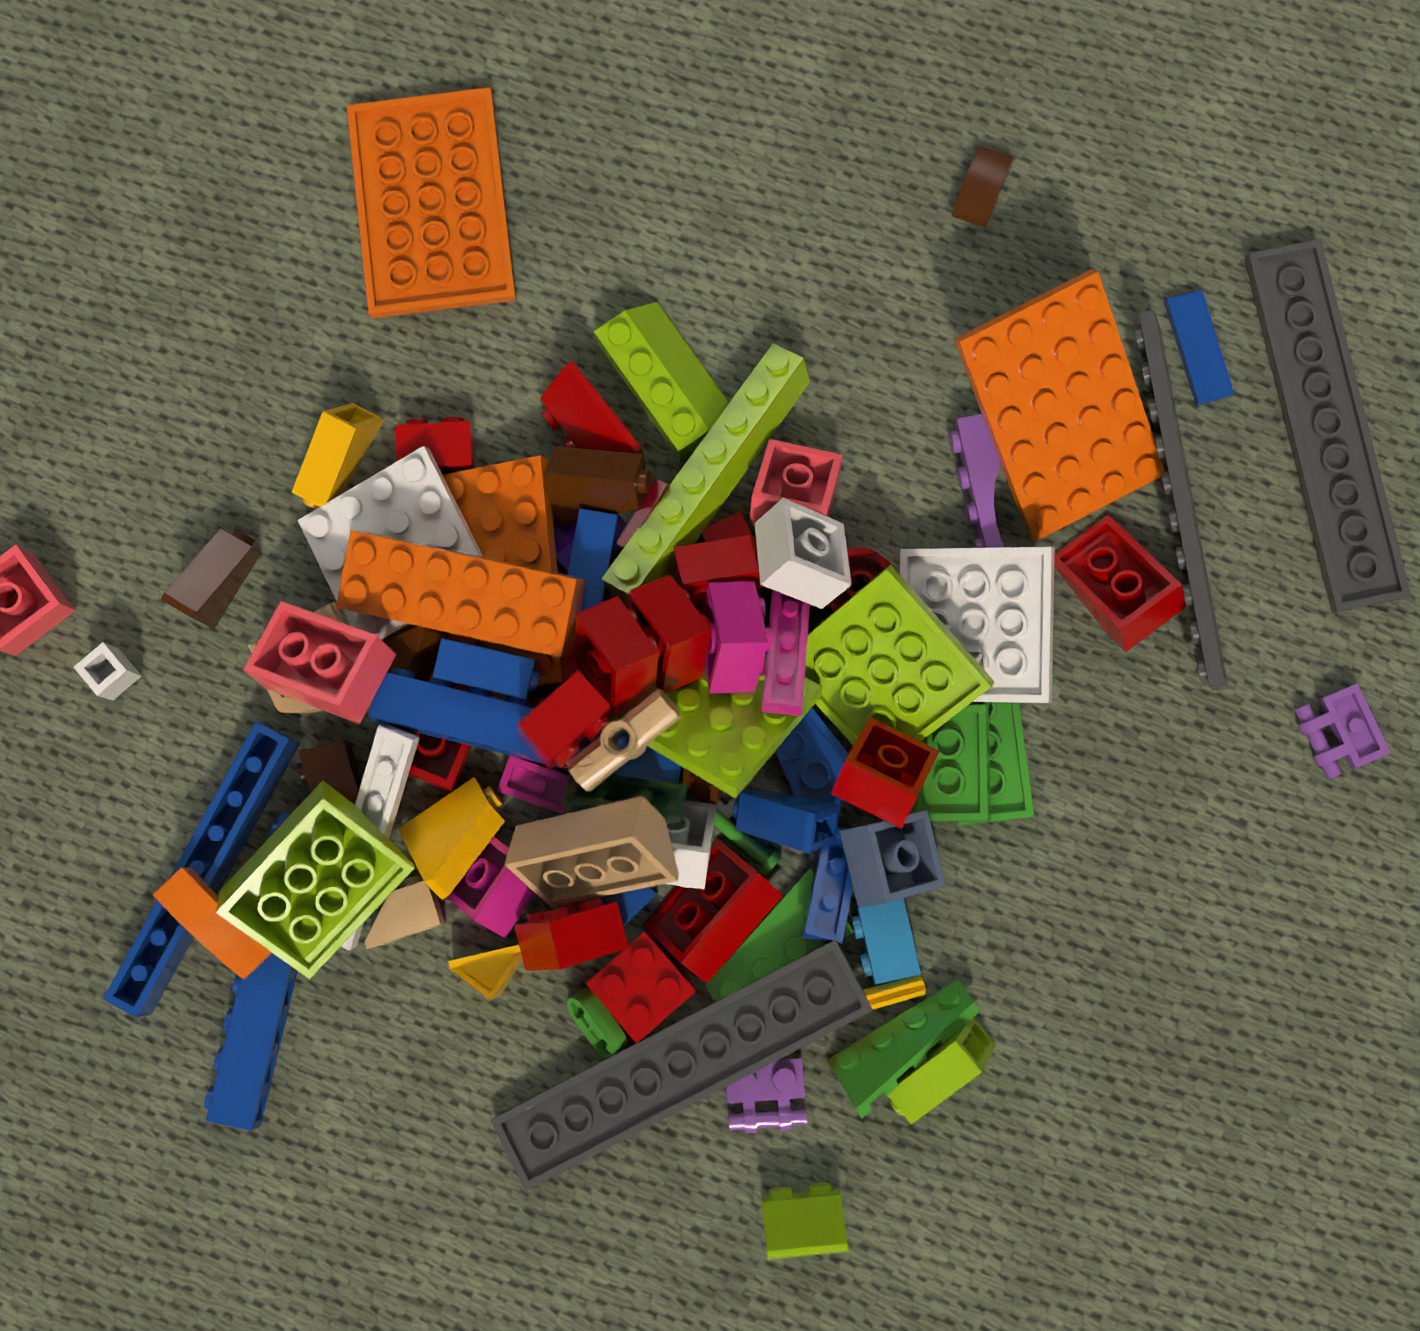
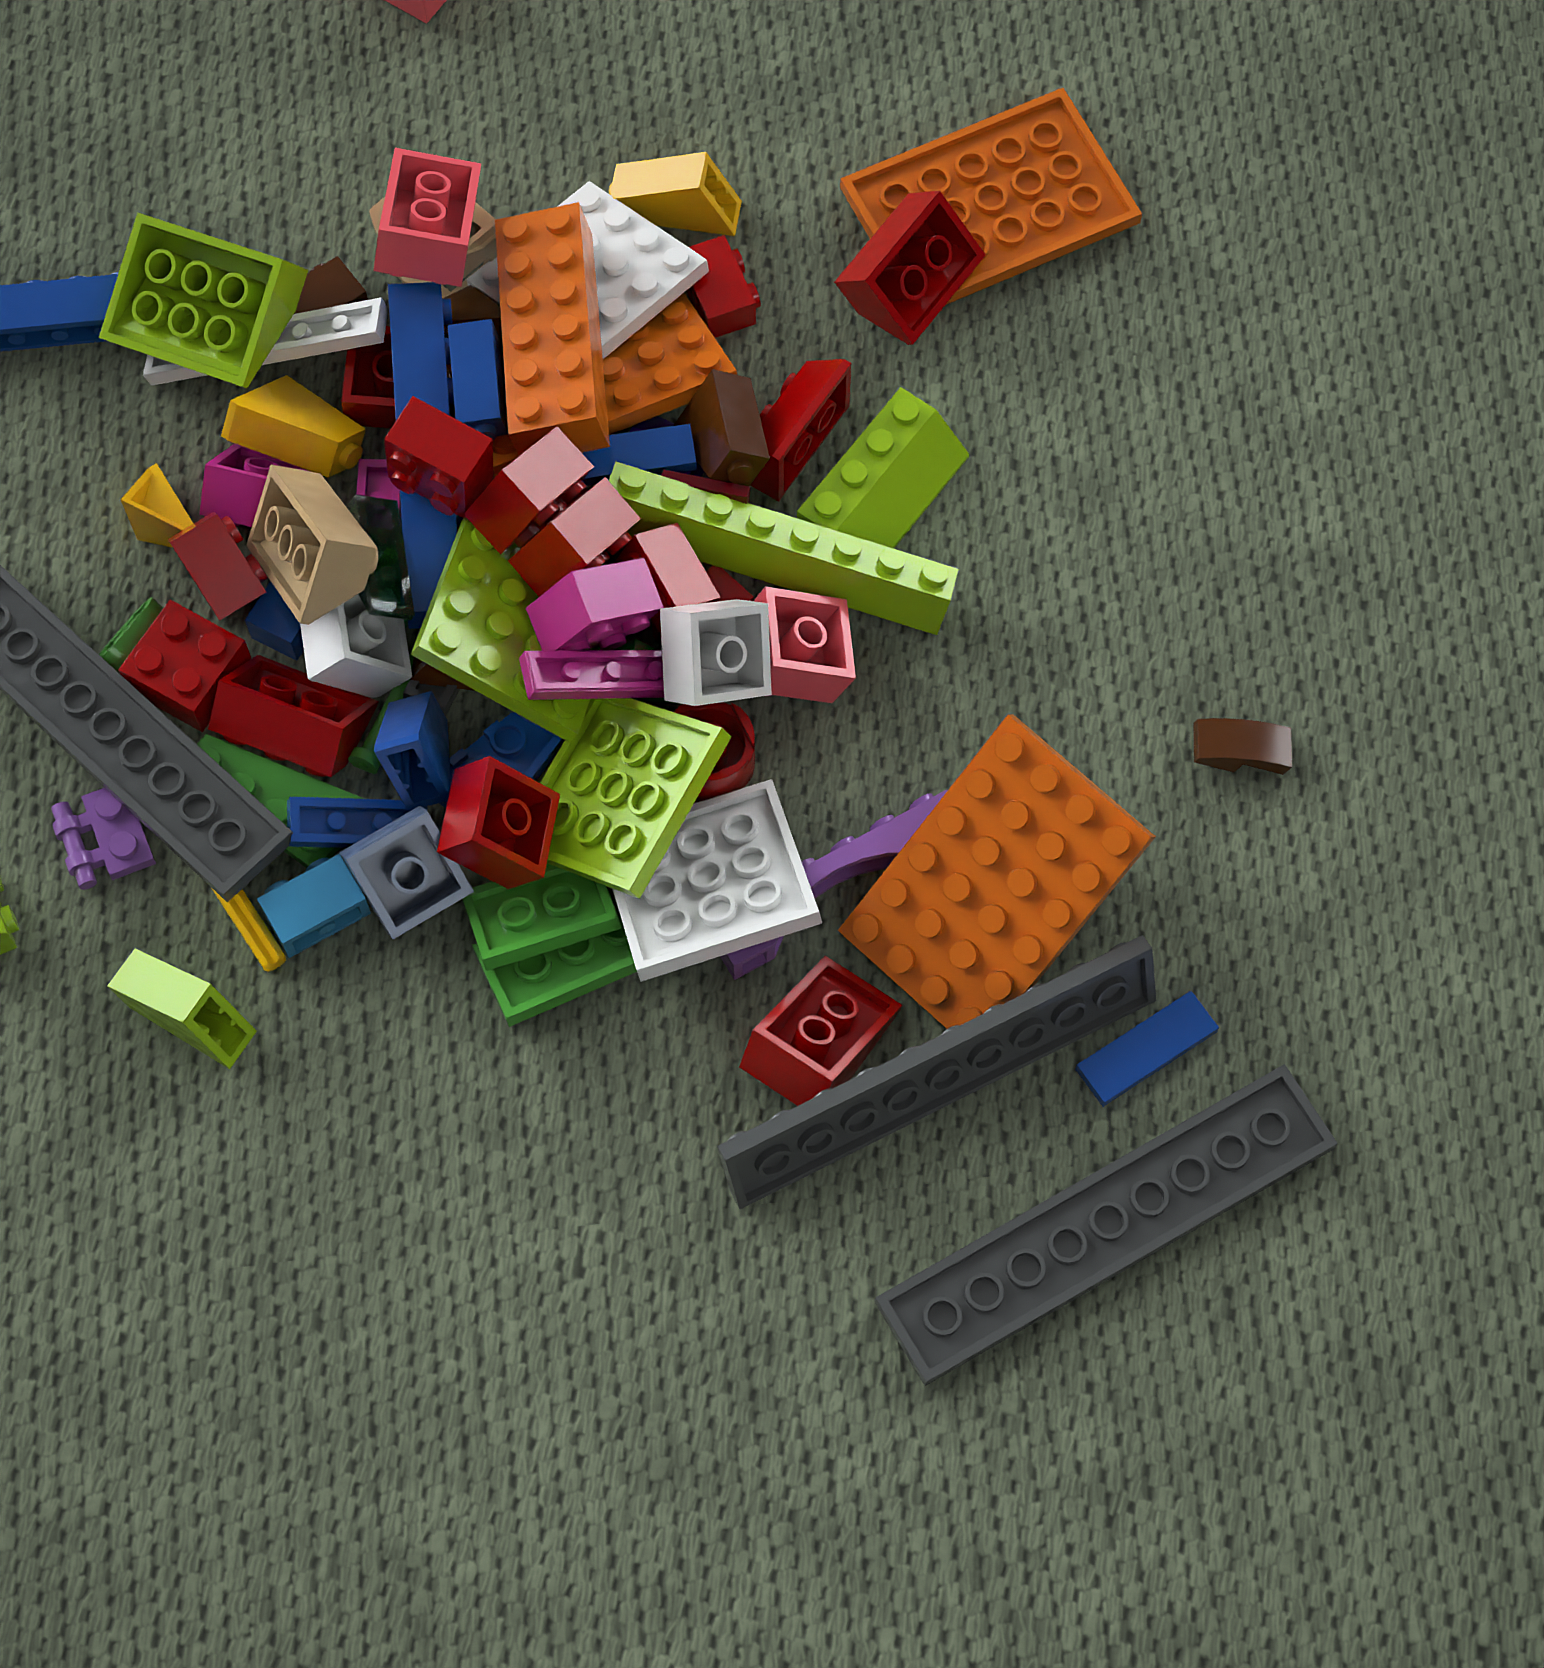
camera: 65 degrees right, 15 degrees down
(107, 671) = (368, 63): white brick -> none
(195, 907) = (146, 190): orange slope -> none
(211, 855) = (245, 216): blue brick -> none
(213, 577) = (497, 123): reddish brown slope -> none
(406, 913) = (195, 414): tan slope -> none
(481, 284) = (911, 266): none -> red slope
(604, 755) = (439, 525): tan piece -> none
(890, 1050) = (163, 923): bright green wing -> none
(1352, 726) = (739, 1362): medium lavender plate -> none

